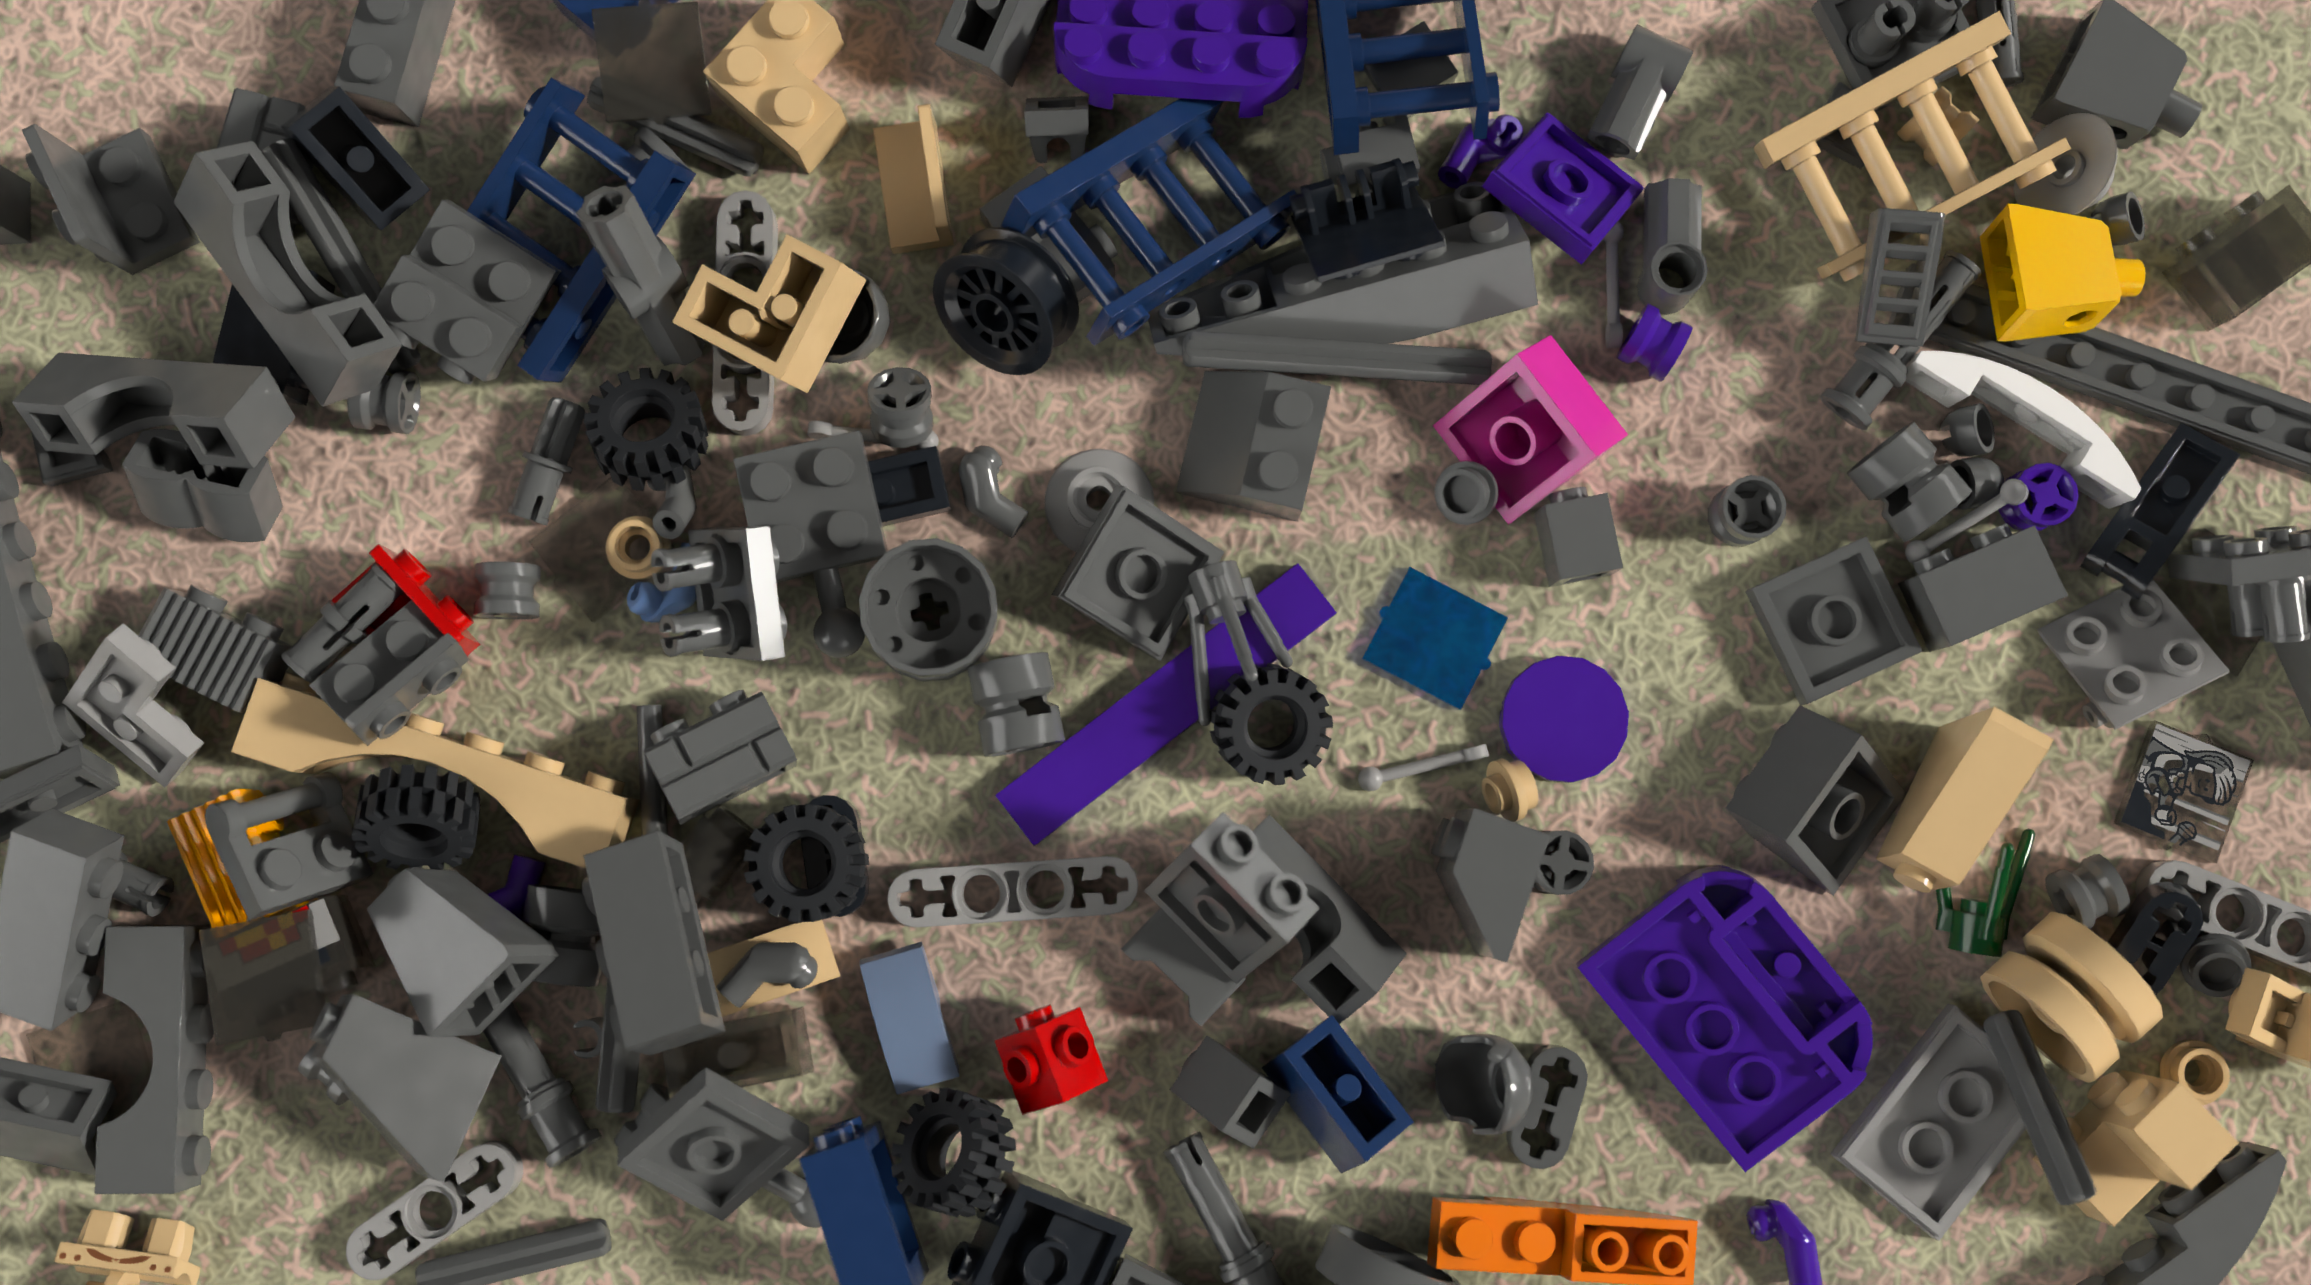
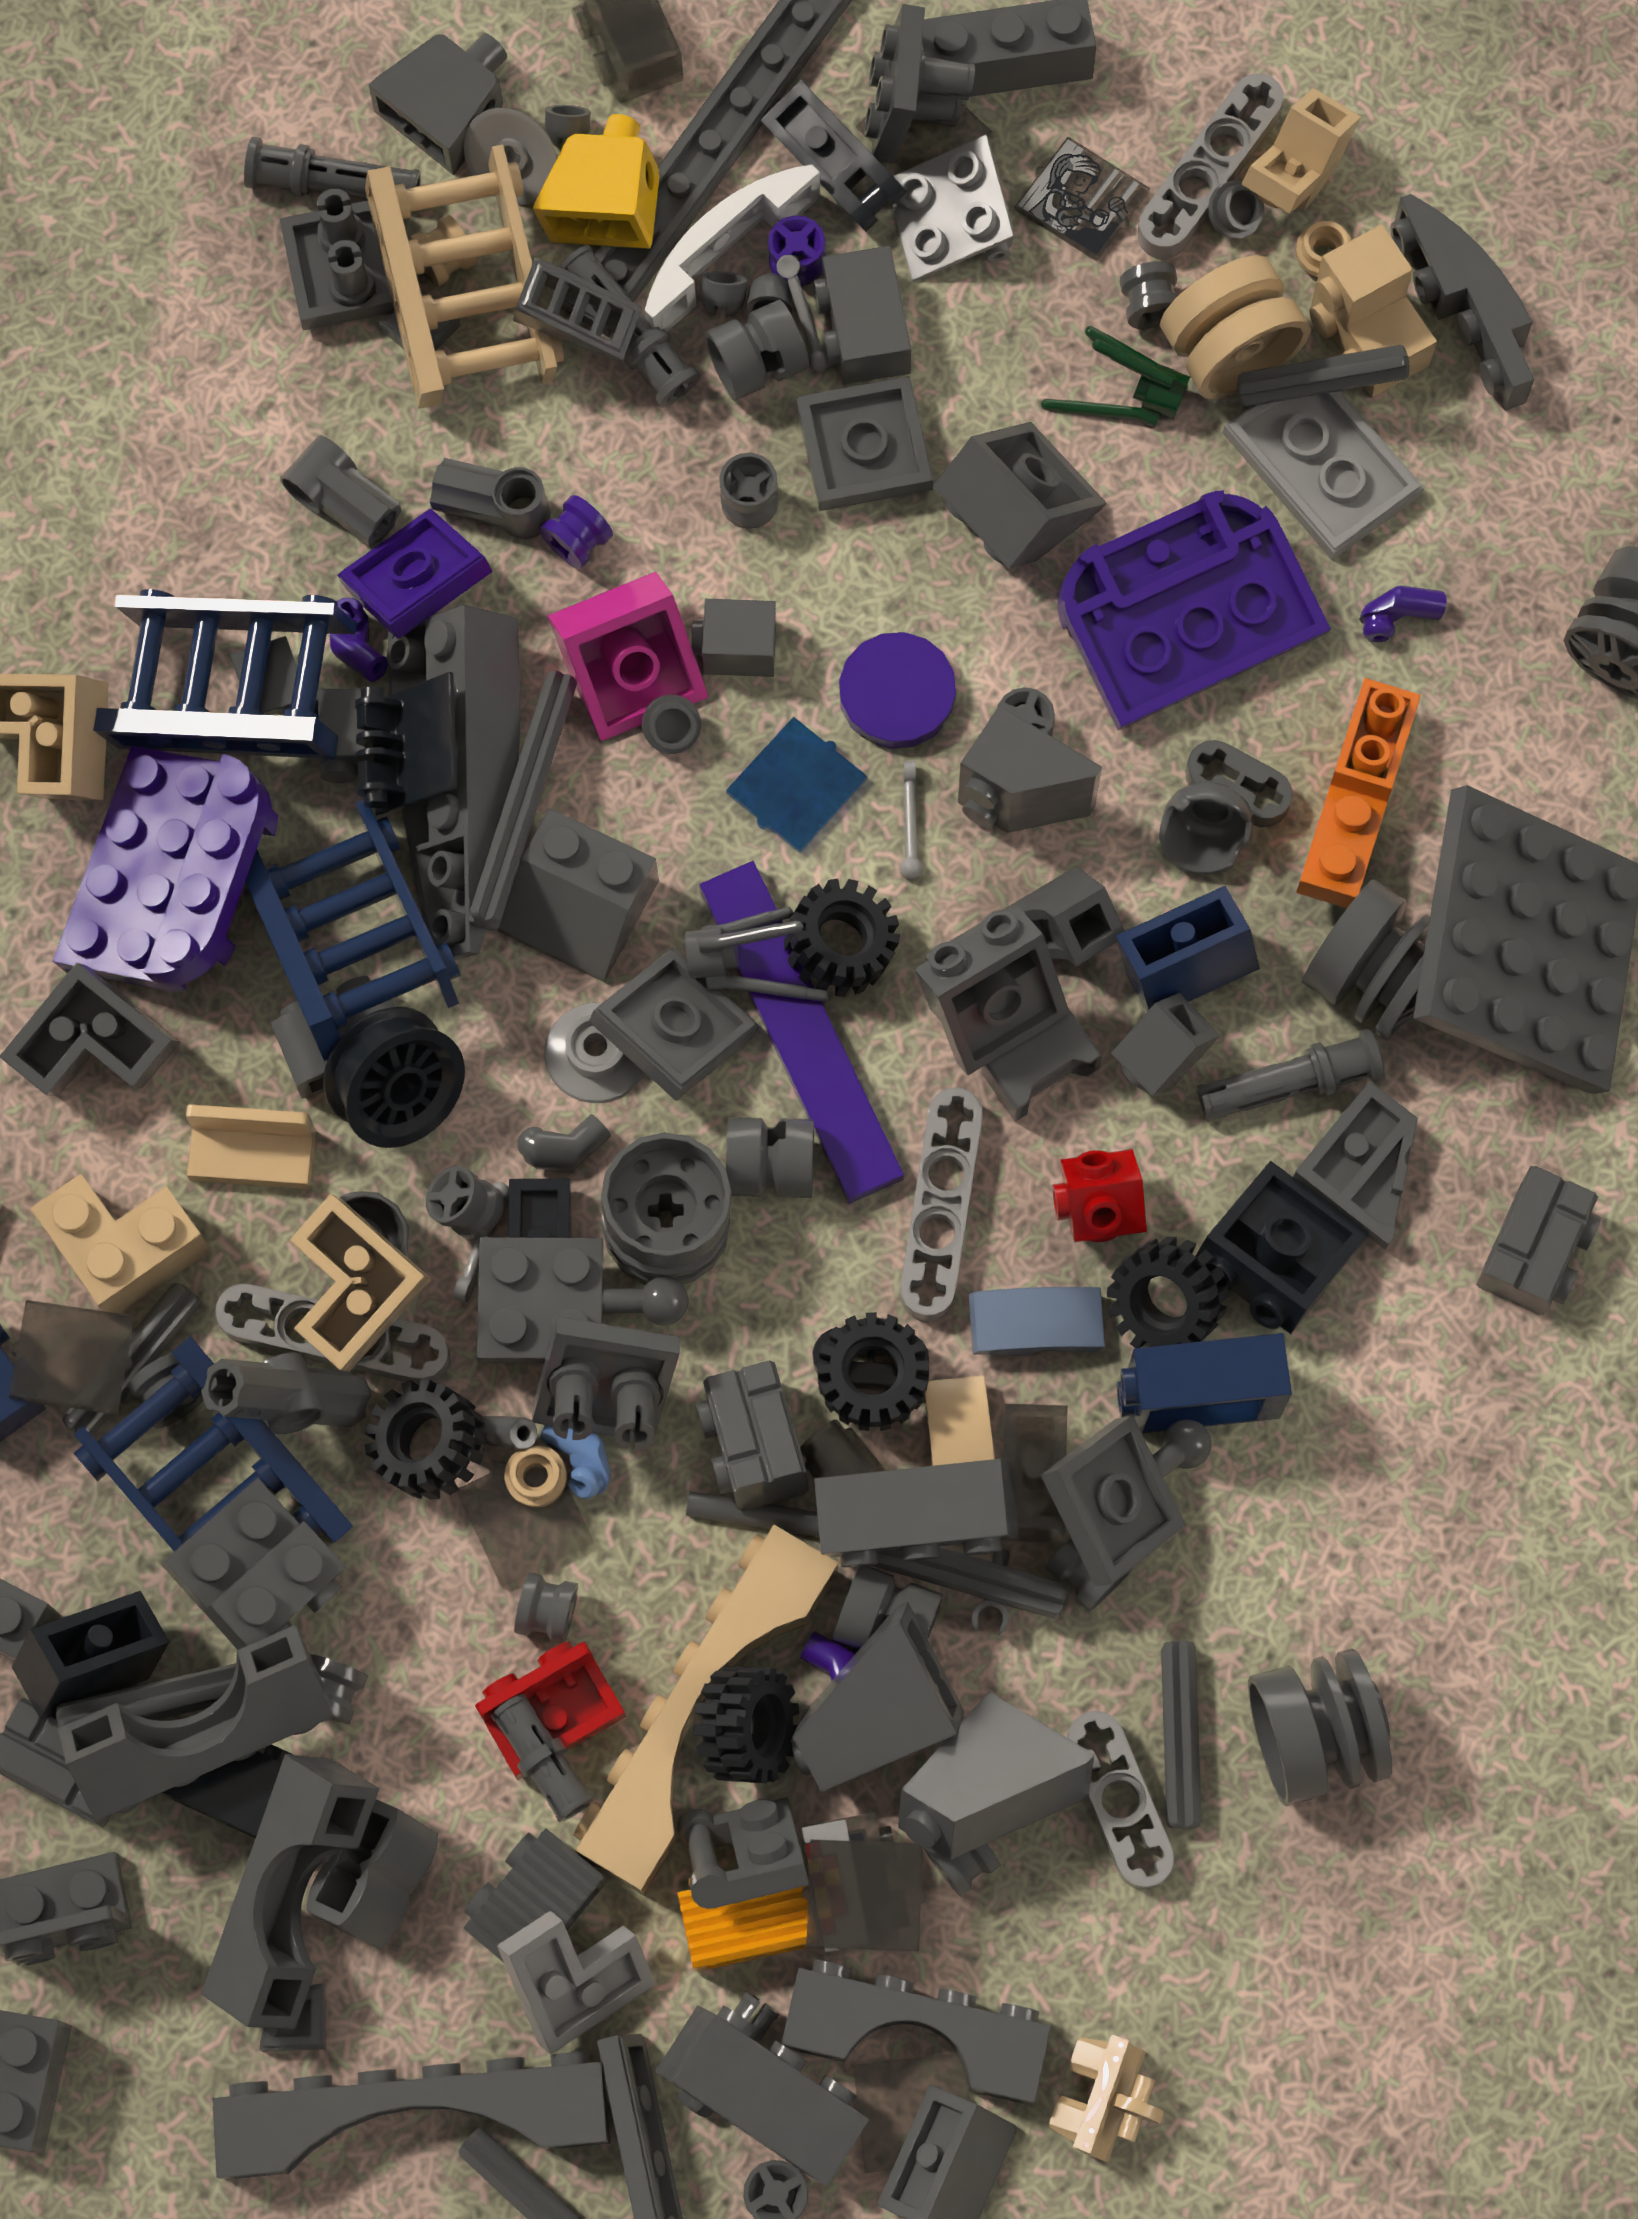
camera: 75 degrees left, 10 degrees down
(391, 674) = (601, 1718): dark grey bracket -> none
(544, 1098) = (1037, 1671): dark grey pin -> none
(547, 460) = (429, 1547): dark grey axle -> none
(768, 964) = (959, 1420): dark grey arm -> none
(1057, 118) = (224, 1004): dark grey tile -> none
(1509, 789) = (946, 746): tan plate -> none
(1614, 329) = (554, 565): light grey hinge -> none
(1960, 797) = (1044, 374): tan slope -> none
(2171, 941) = (1208, 247): black beam -> none

